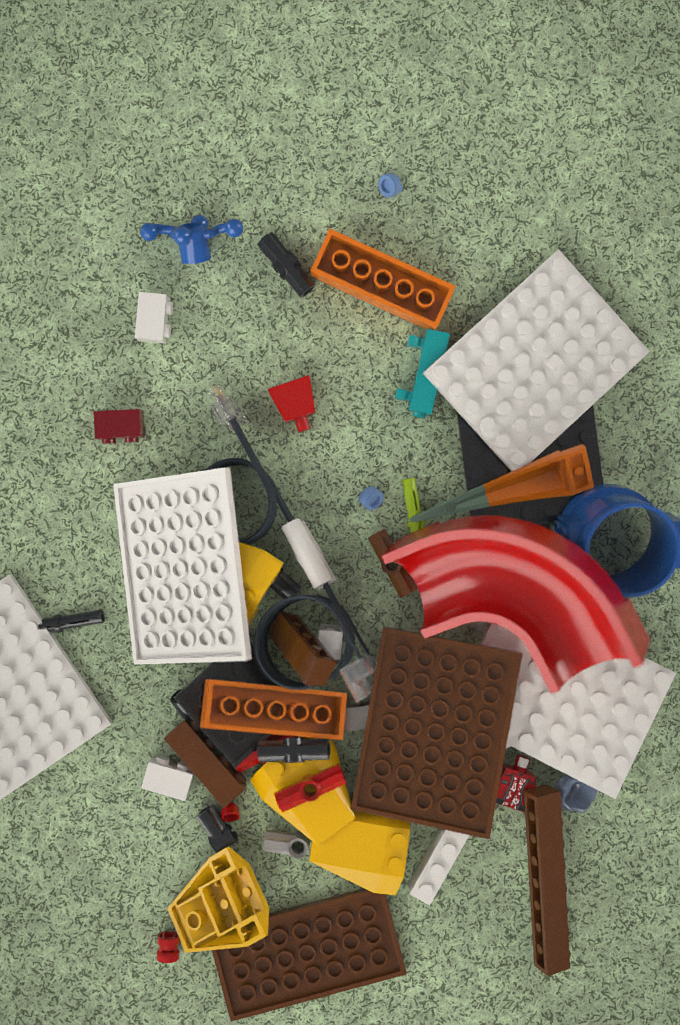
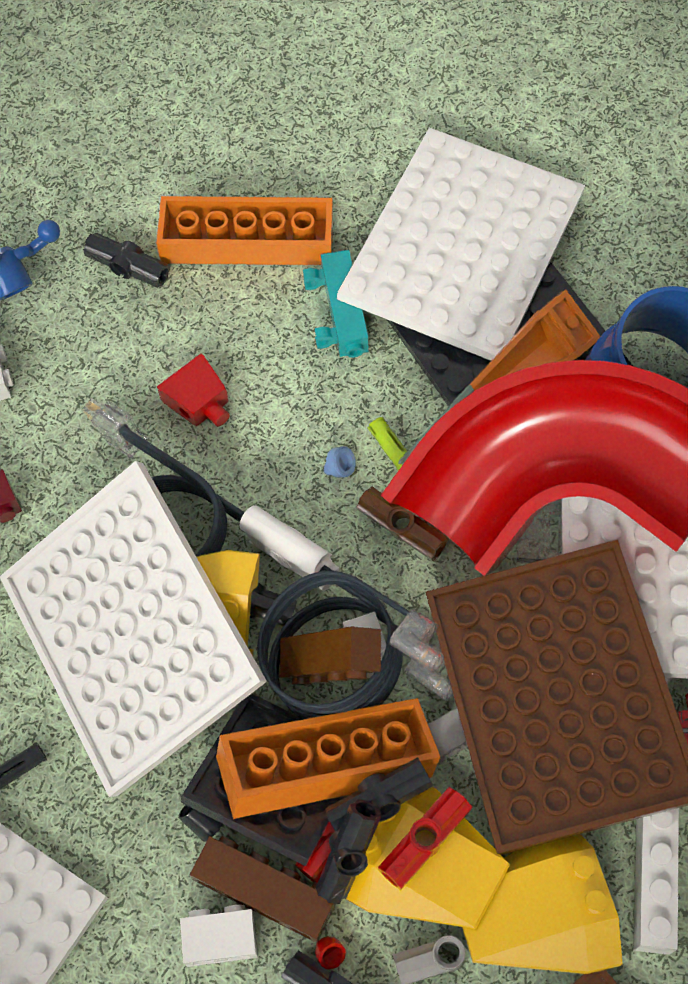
camera: 20 degrees left, 25 degrees down
(261, 775) = (348, 851): none -> black piece
(390, 185) = (212, 143): medium blue tile -> none

